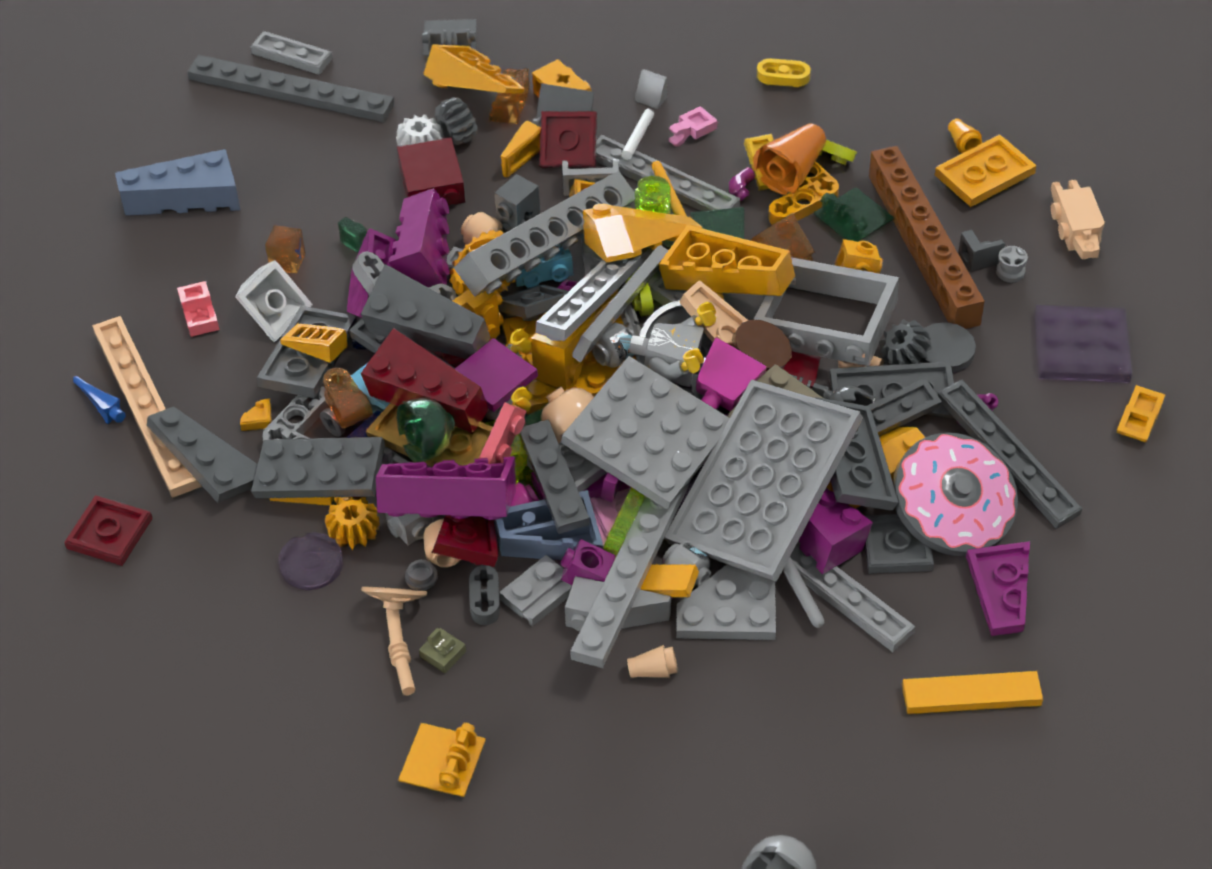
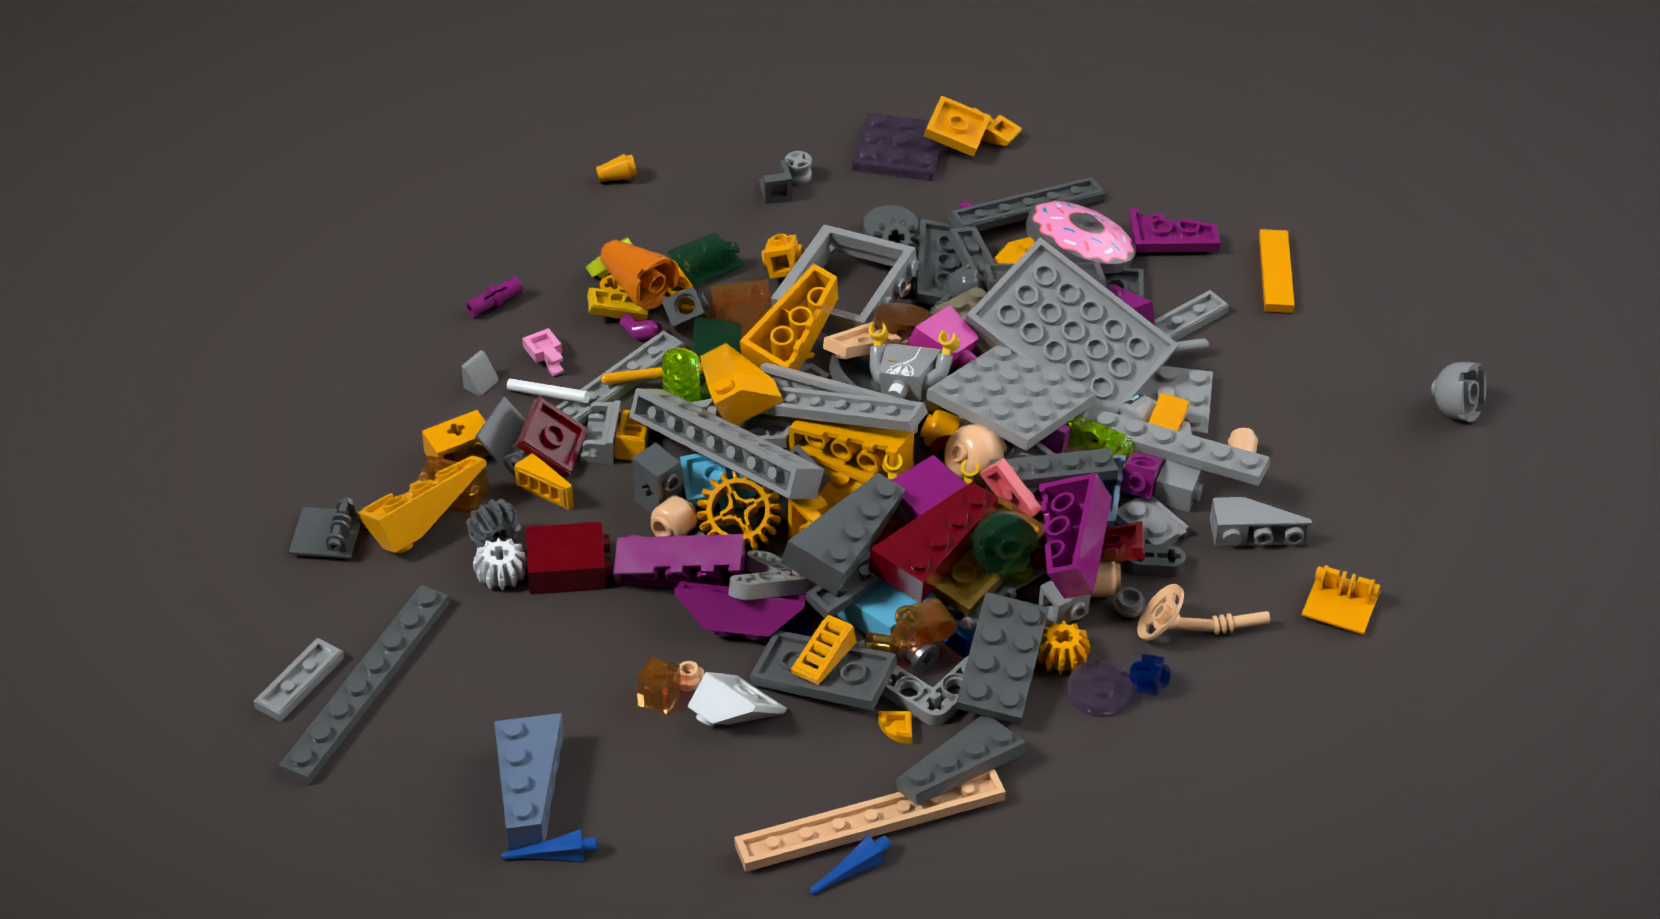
camera: 85 degrees left, 5 degrees down
(108, 530) = (1043, 856): dark red tile -> none
(118, 221) = (566, 847): none -> blue piece
(198, 308) = (717, 775): coral slope -> none
(306, 271) = (690, 675): none -> light nougat plate
(316, 590) = (1150, 674): none -> clear blue gear
(351, 233) = (648, 627): clear green plate -> none
(442, 650) = (1217, 594): olive tile -> none
(542, 668) = (1252, 523): none -> light grey slope
(757, 84) = (494, 297): none -> magenta pin
(758, 201) = (673, 308): none -> dark grey brick
(783, 72) = (483, 273): yellow plate -> none
(926, 238) = (753, 211): dark orange brick -> none
(985, 170) = (669, 164): light orange plate -> none
(1077, 218) = (750, 118): light nougat hinge -> none
(1113, 375) = (957, 126): none -> light orange plate

